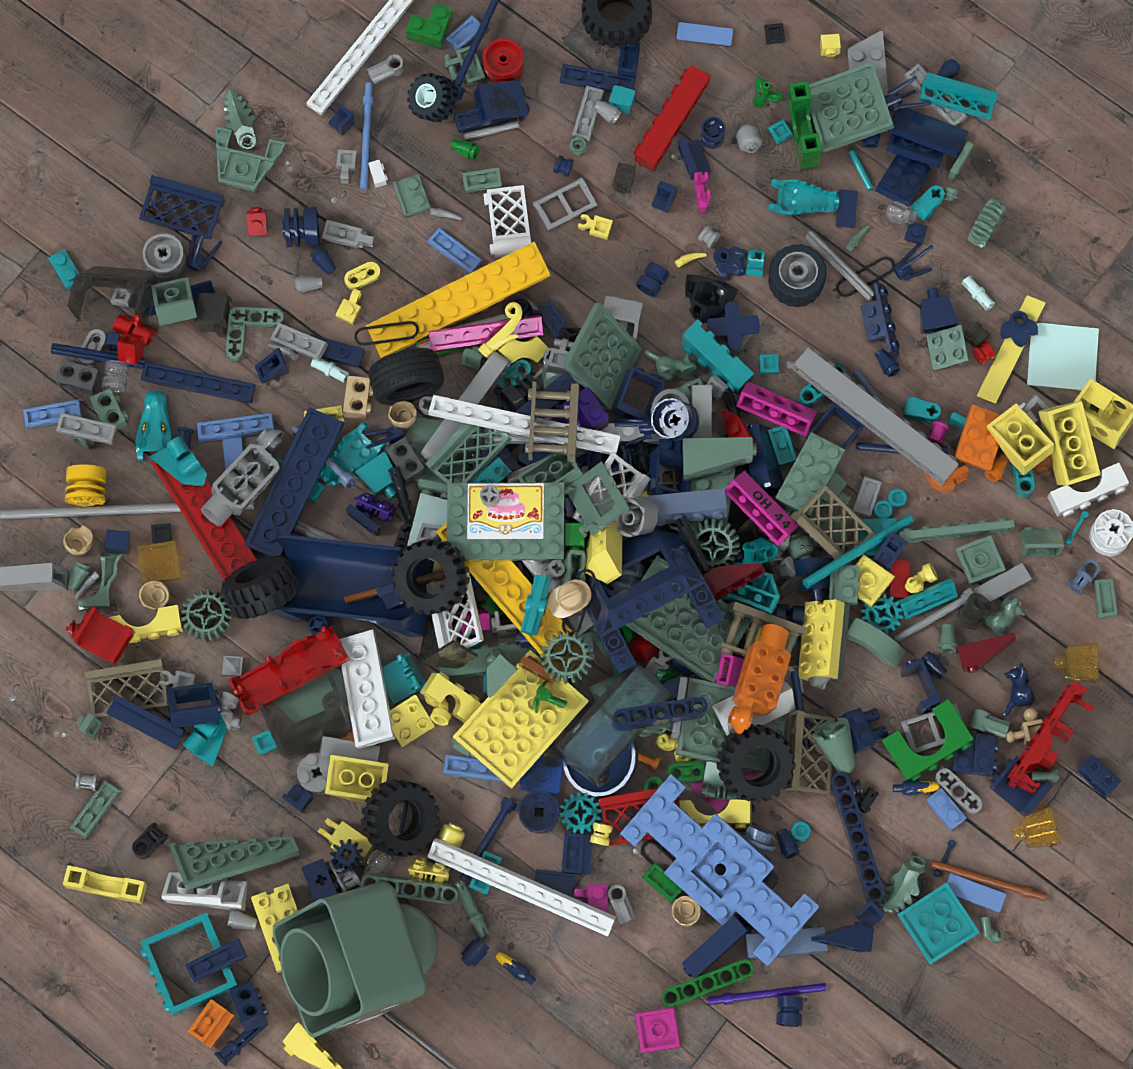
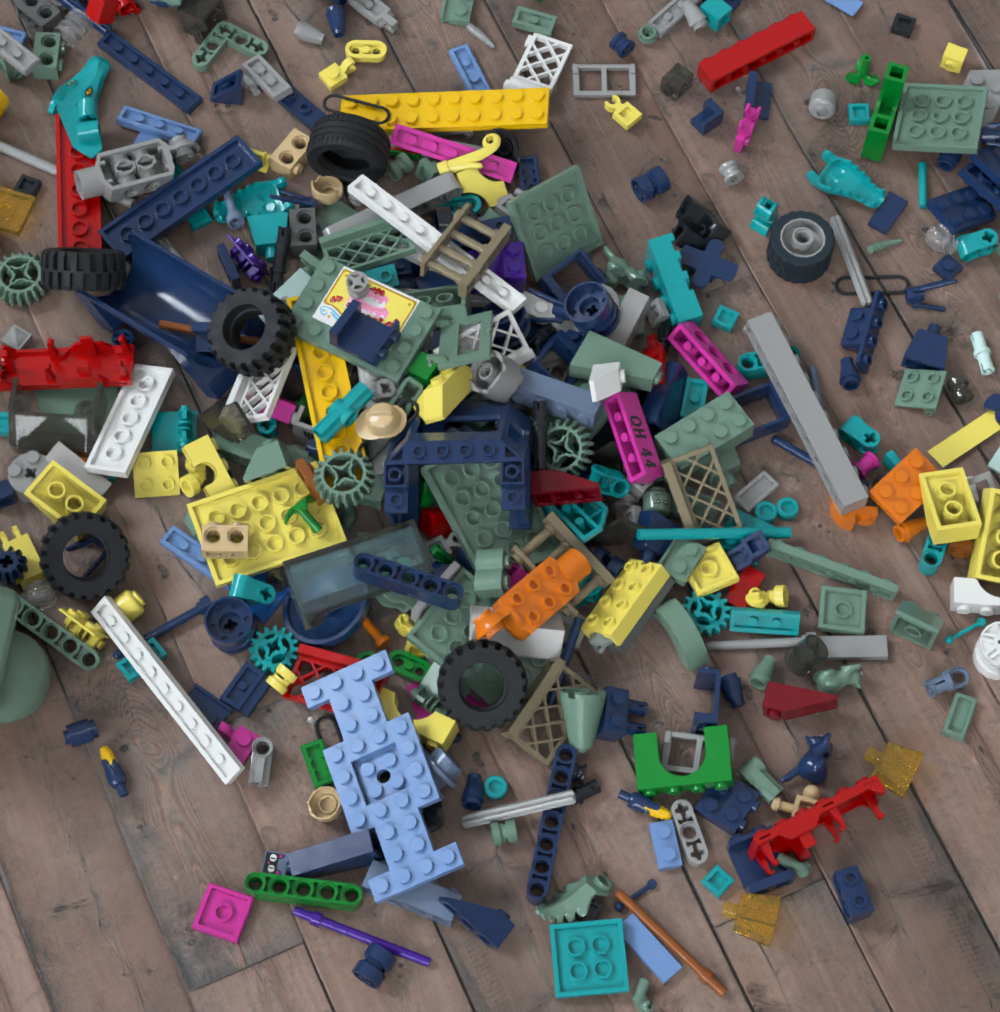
camera: 25 degrees right, 10 degrees down
(188, 432) = (105, 110): dark blue bush -> none
(330, 369) = (282, 116): light aqua pin -> none
(448, 363) = (399, 166): none -> sand green wheel
(475, 916) = (104, 699): sand green pin -> none
(504, 755) = (225, 547): none -> tan brick
(519, 535) = (363, 335): none -> dark blue panel
(540, 778) = (251, 590): none -> teal piece
(626, 313) = (604, 198): light grey brick -> none
(674, 974) = (275, 863): none -> tile
(683, 260) = (699, 184): light yellow helmet -> none
(712, 132) = (789, 81): dark blue wheel -> none
(715, 672) = (491, 573): none -> sand green brick
(720, 475) = (606, 380): none -> white slope
(731, 264) = (739, 209): dark blue plate -> none
(826, 862) = (501, 832): none -> sand green wheel
(829, 840) = (518, 809): none -> light grey axle
(870, 914) = (519, 909): dark blue panel -> none
(983, 353) = (956, 411): red wheel -> none
(997, 817) = (717, 881): none -> teal tile

